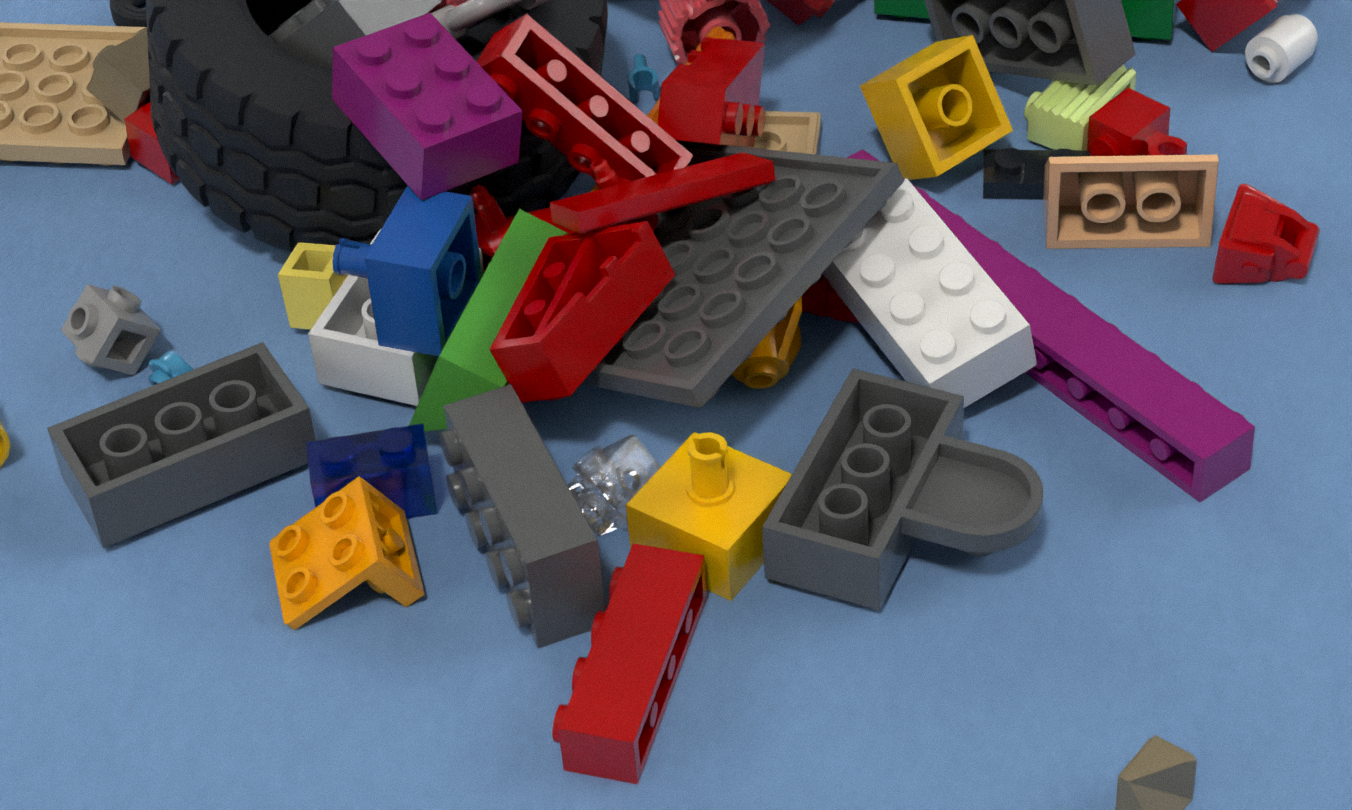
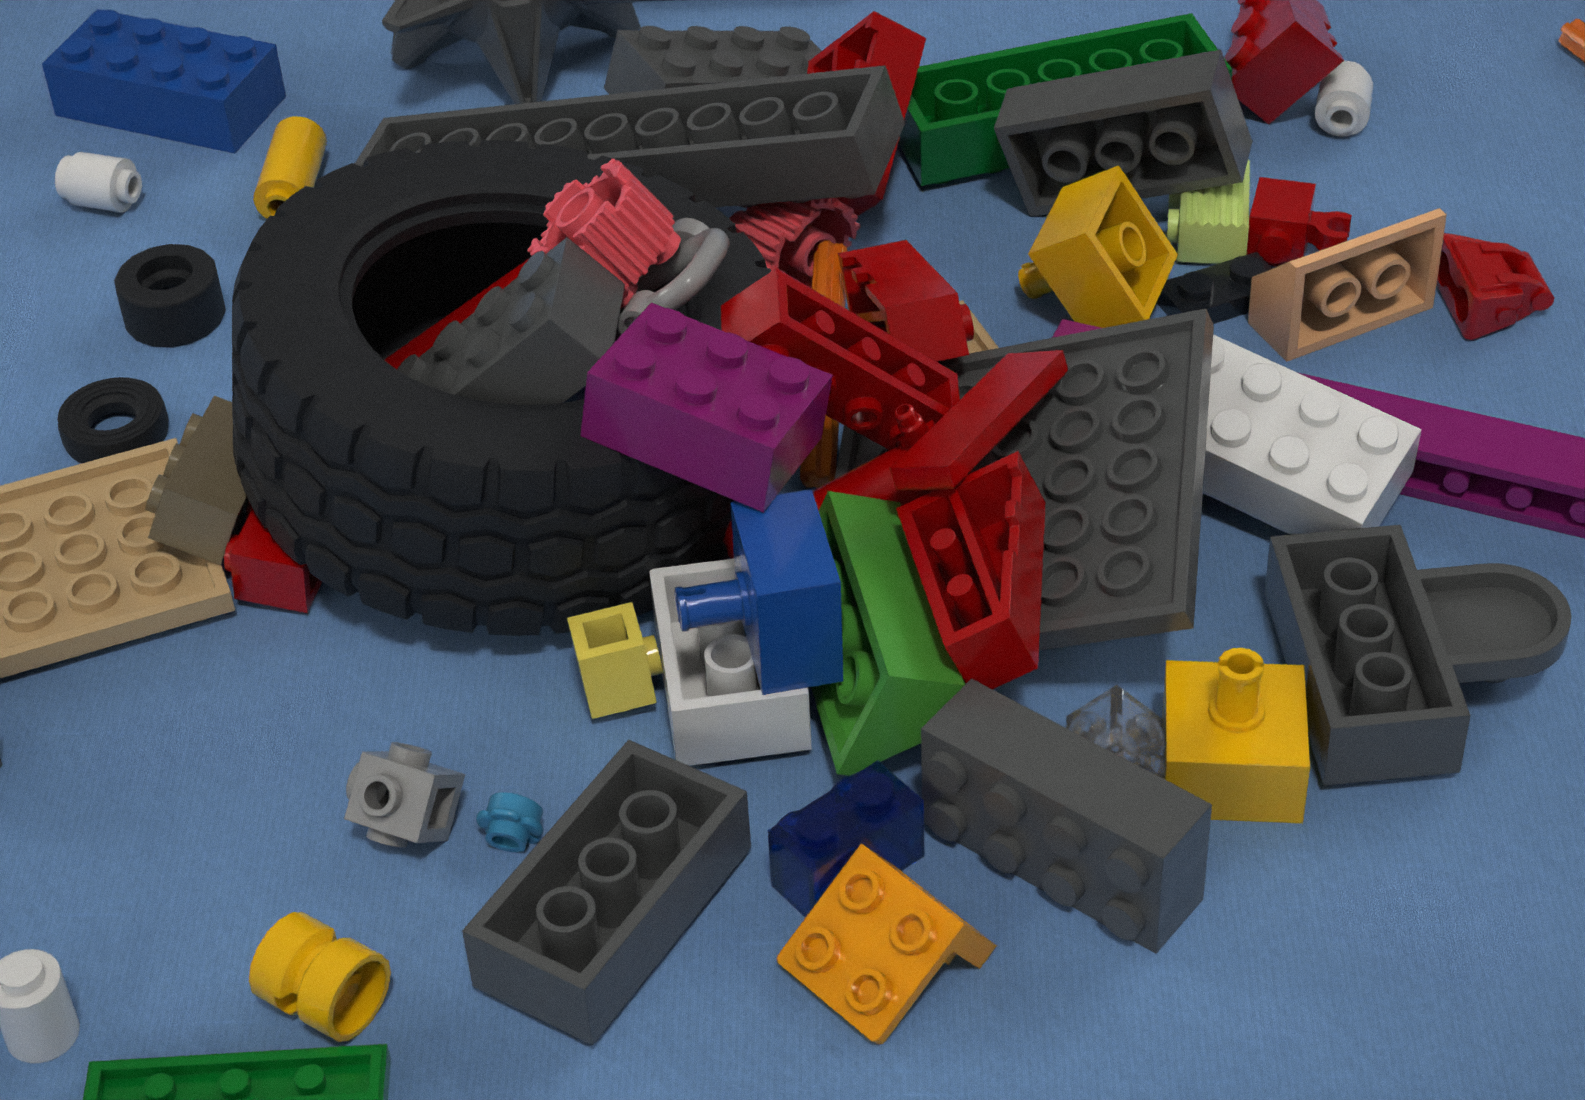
camera: 30 degrees left, 0 degrees up
(631, 664) = (1292, 929): red brick -> none

